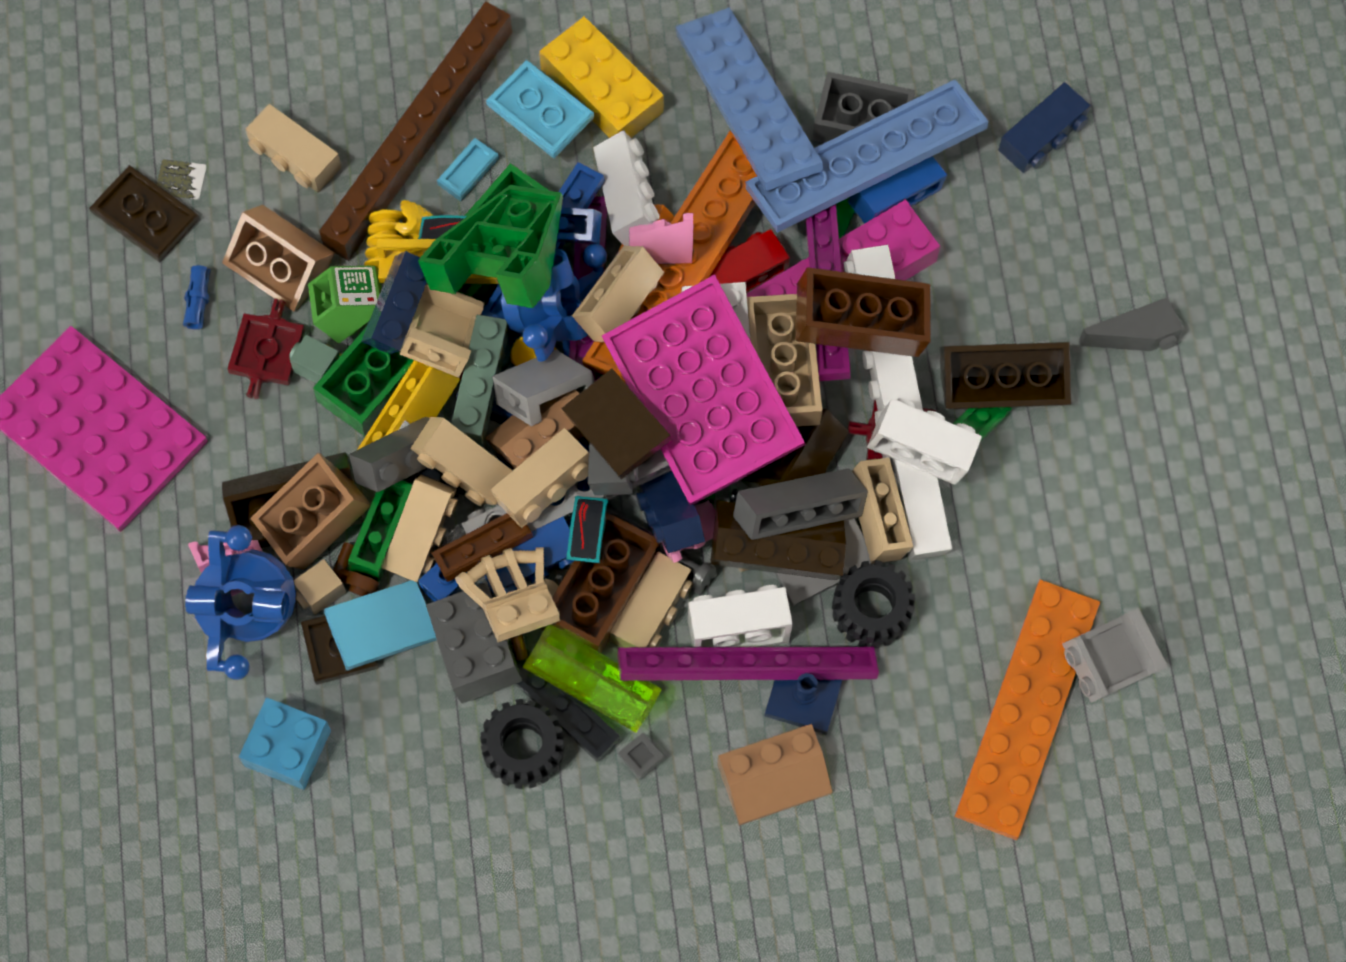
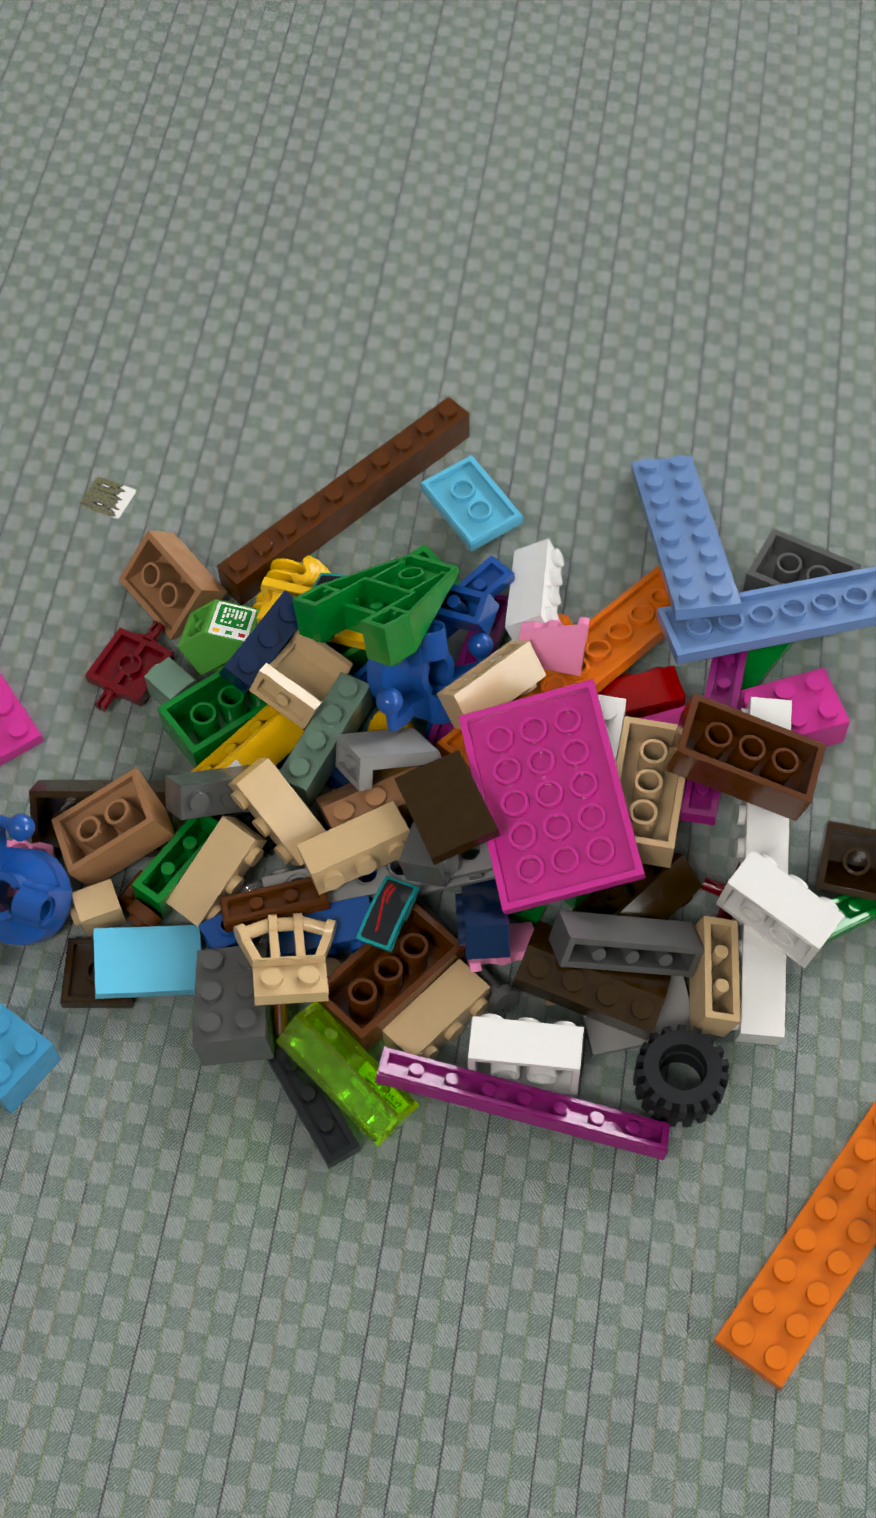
camera: 20 degrees right, 10 degrees down
(144, 213) = (62, 519): dark brown tile -> none
(196, 297) = (81, 604): blue pin -> none
(293, 148) = (221, 491): tan brick -> none
(467, 169) = (386, 545): medium azure tile -> none
(515, 718) = (244, 1098): black tyre -> none
(601, 79) = (543, 492): yellow brick -> none
(640, 756) = (377, 1174): dark grey plate -> none
(774, 774) = (519, 1235): medium nougat slope -> none
(804, 701) = (575, 1163): dark blue tile -> none
(910, 184) = (839, 653): blue brick -> none

